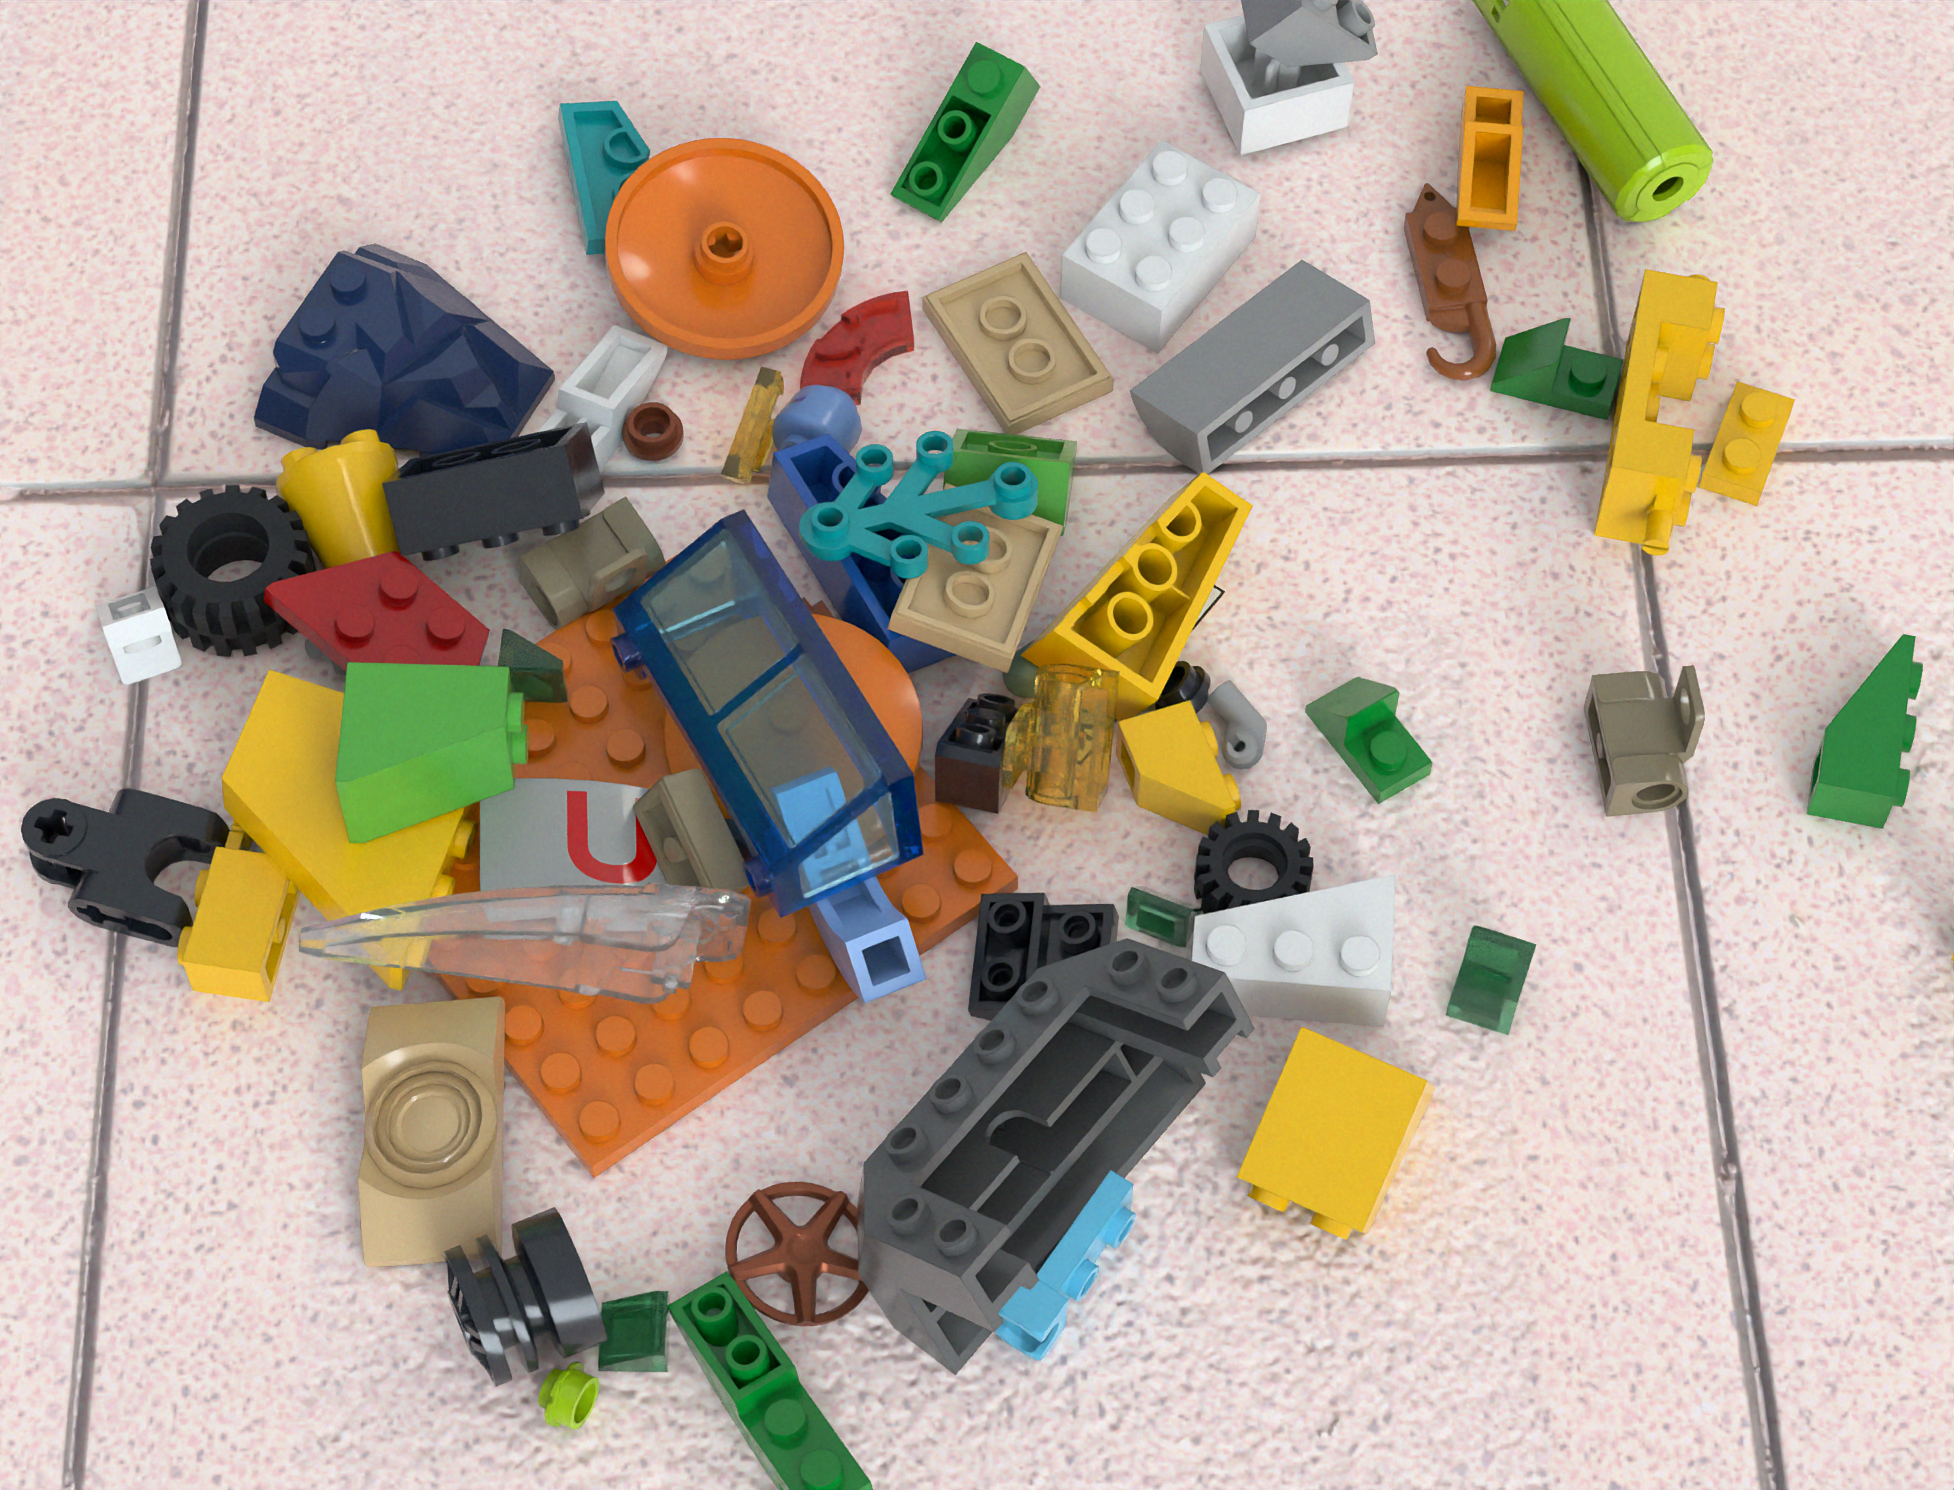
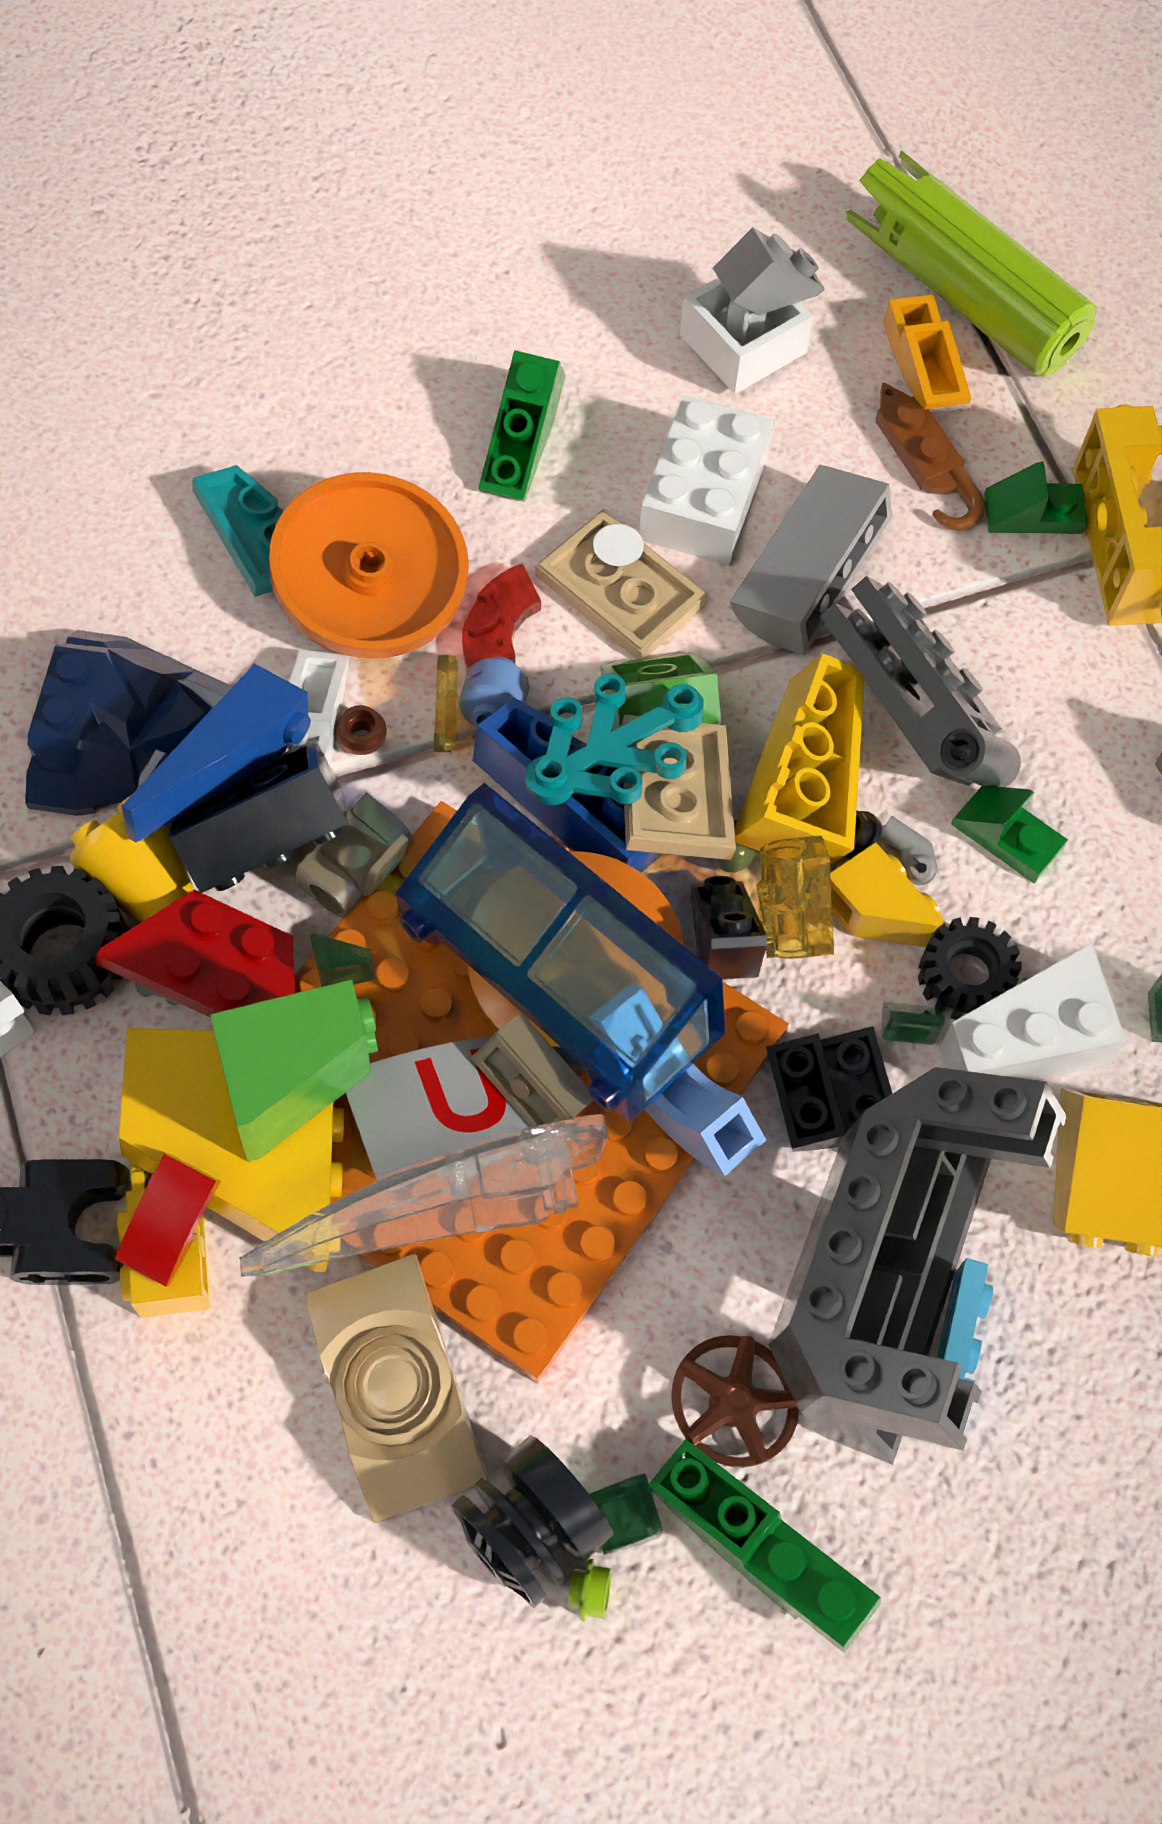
camera: 20 degrees left, 5 degrees up
(242, 877) = (166, 1219): none -> red slope
(480, 403) = (229, 744): none -> blue wedge
(1027, 296) = (618, 545): none -> white sticker
(1314, 540) = (923, 687): none -> dark grey hinge

